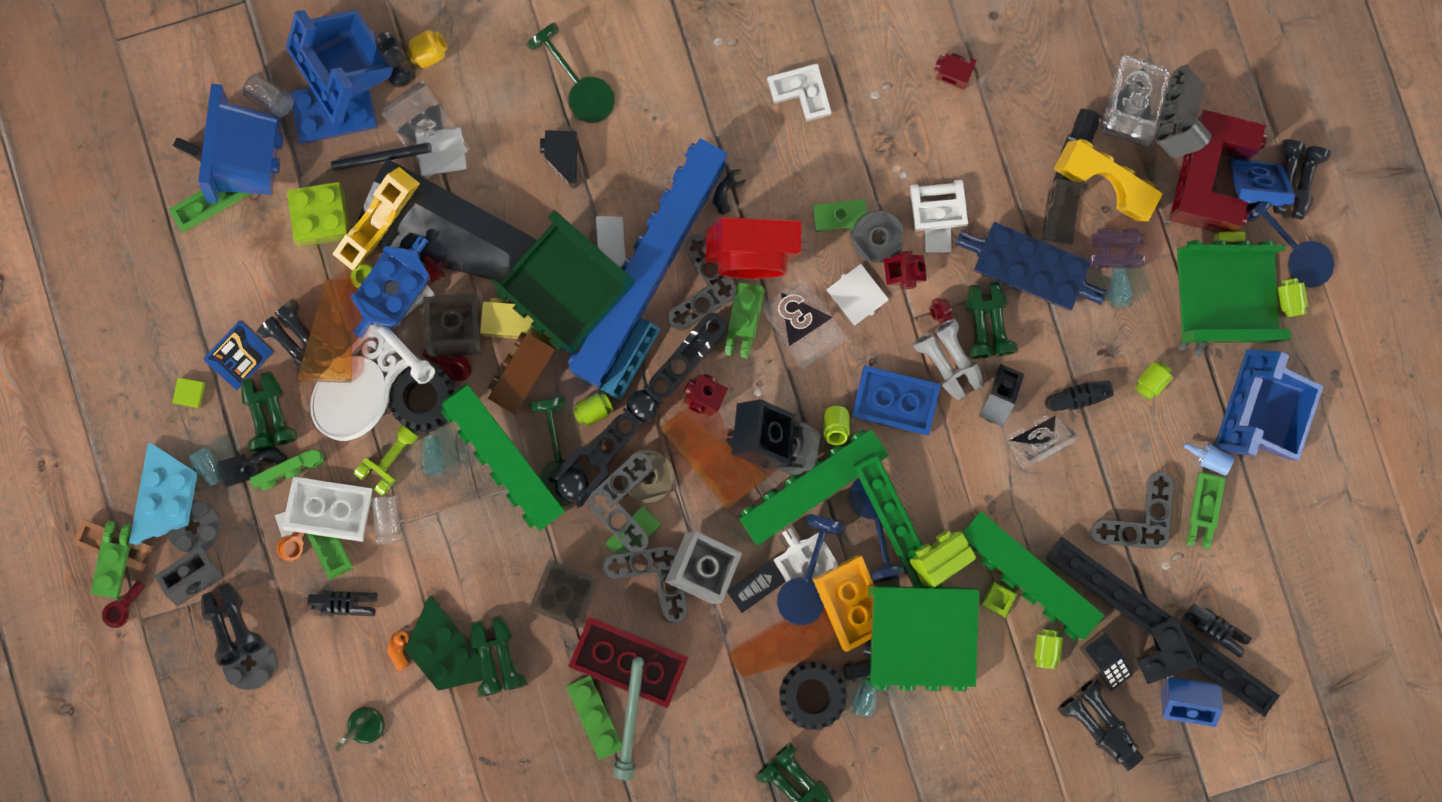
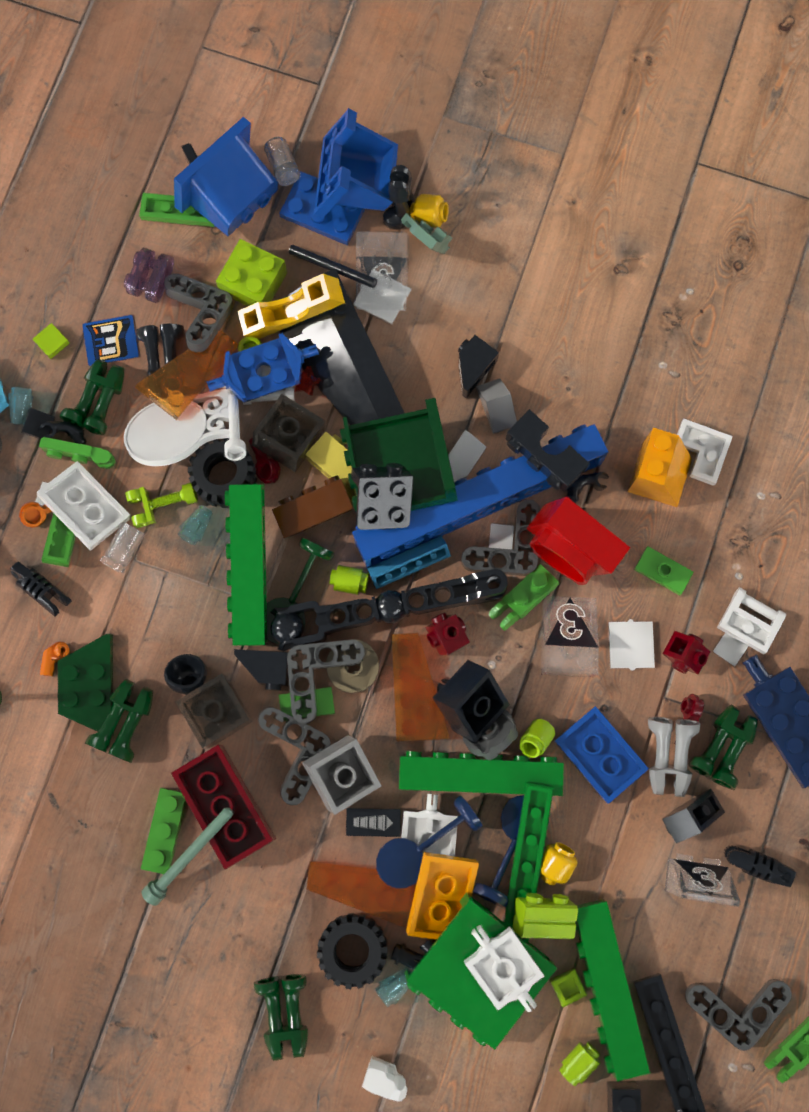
camera: 40 degrees right, 5 degrees down
(222, 289) = (143, 263): none -> clear purple brick
(298, 265) = (206, 304): none -> dark grey beam
(441, 74) = (436, 241): none -> sand green plate
(518, 582) = (185, 673): none -> black piece
(574, 322) = (383, 496): none -> bracket
(579, 528) = (266, 667): none -> black slope
(590, 97) = (528, 336): dark green piece -> none
(606, 175) = (497, 405): none -> light grey slope
(689, 283) = (501, 536): none -> white sticker
(700, 196) = (560, 469): none -> black arch
(779, 133) = (661, 468): none -> light orange slope
(863, 233) = (691, 596): dark grey plate -> none
(909, 773) = (384, 1080): none -> white rock
(923, 511) = (557, 863): none -> yellow head
(938, 619) = (503, 968): none -> white plate

